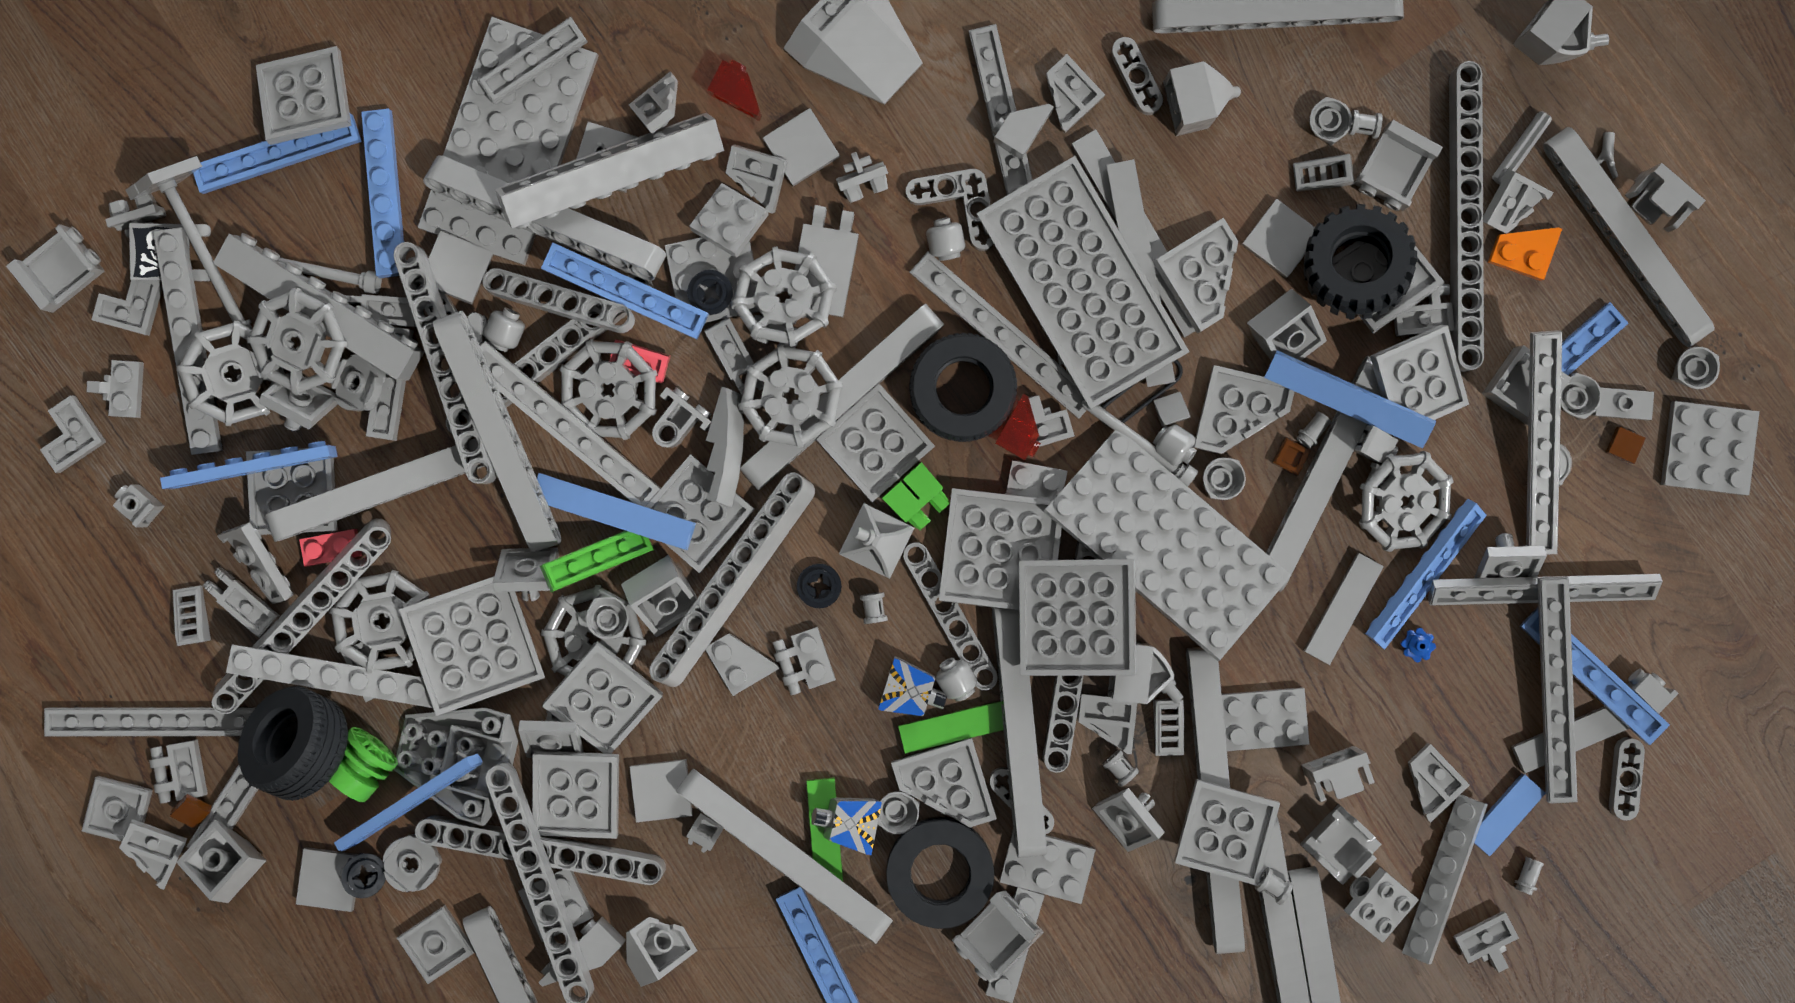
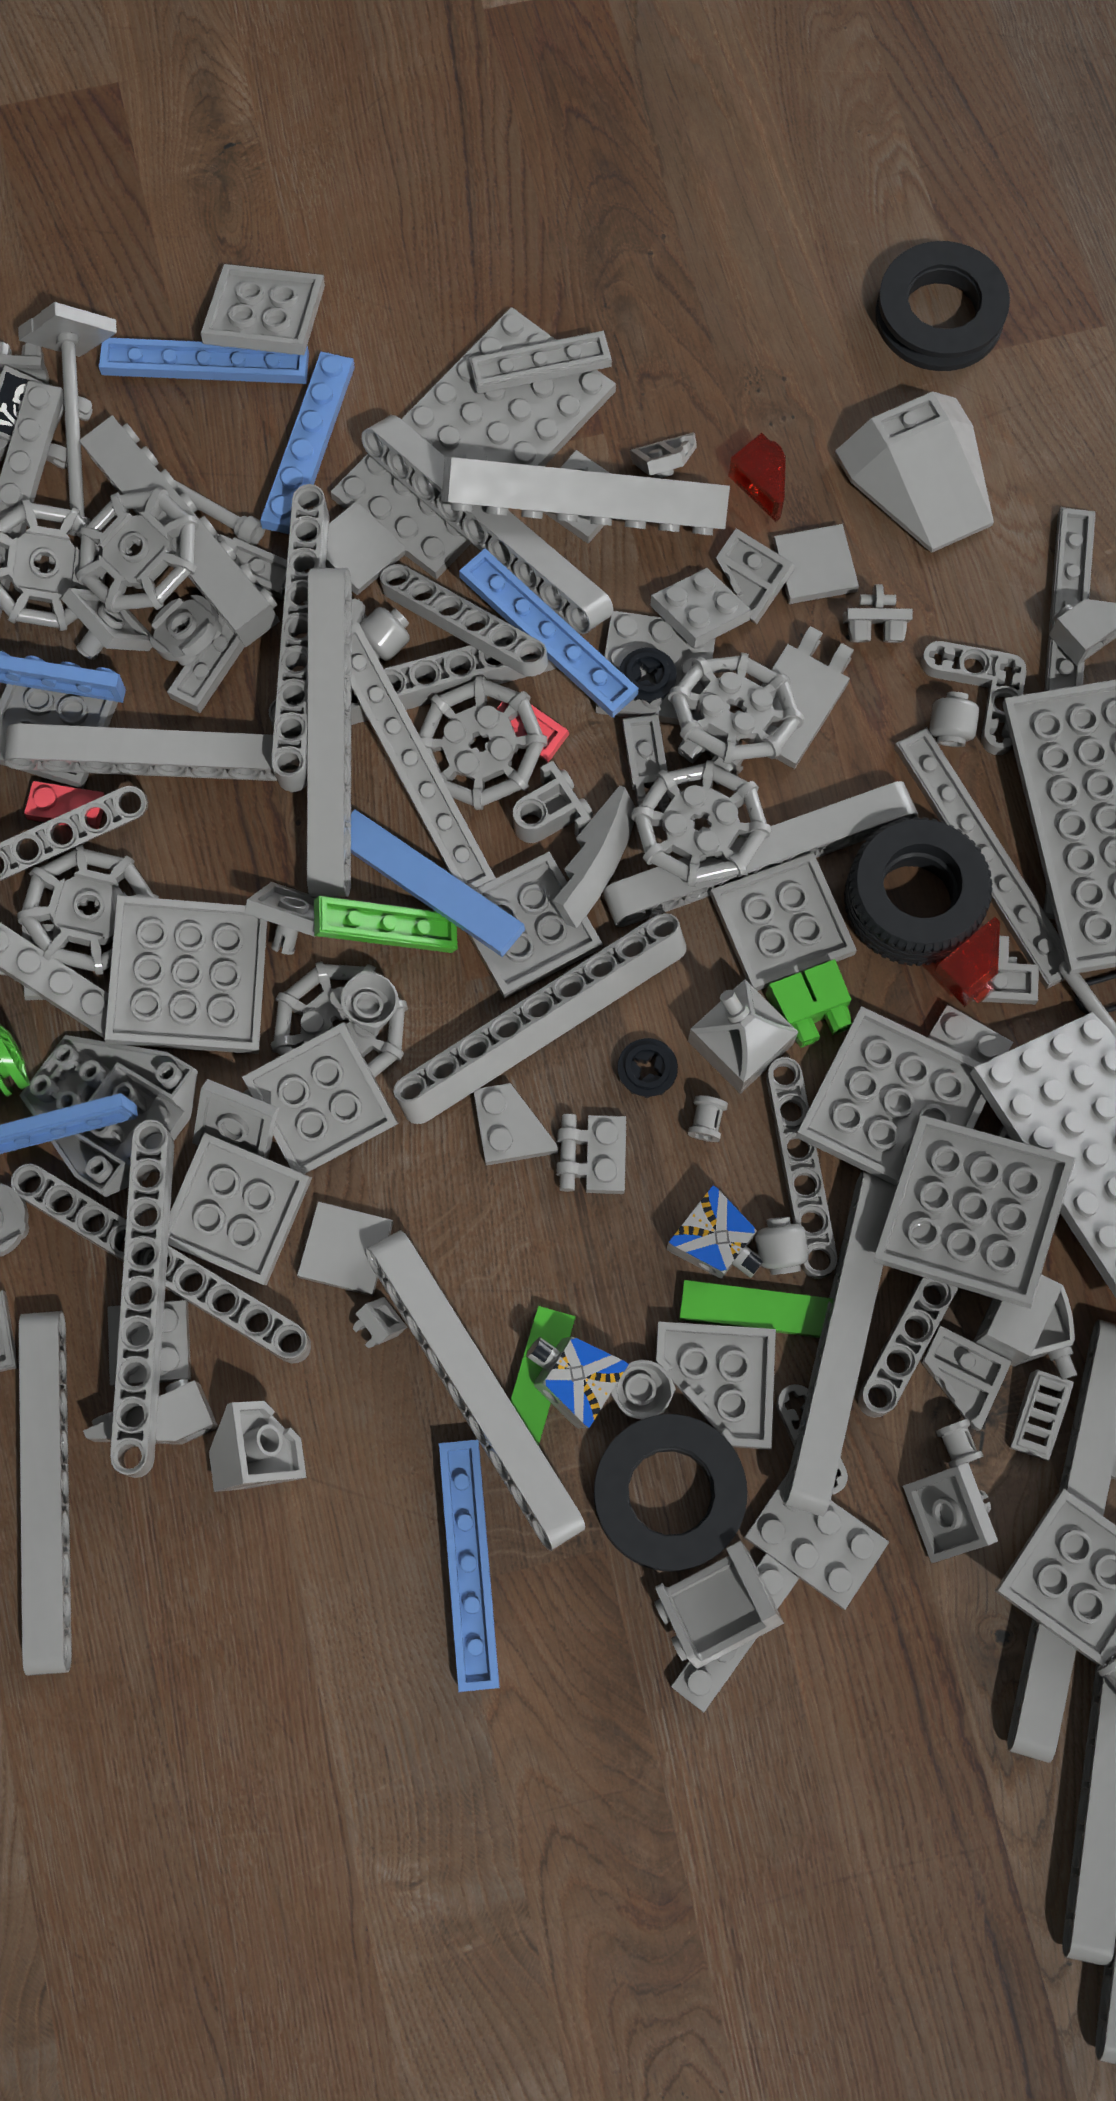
camera: 20 degrees right, 15 degrees down
(660, 595) = (443, 1004): light grey slope -> none

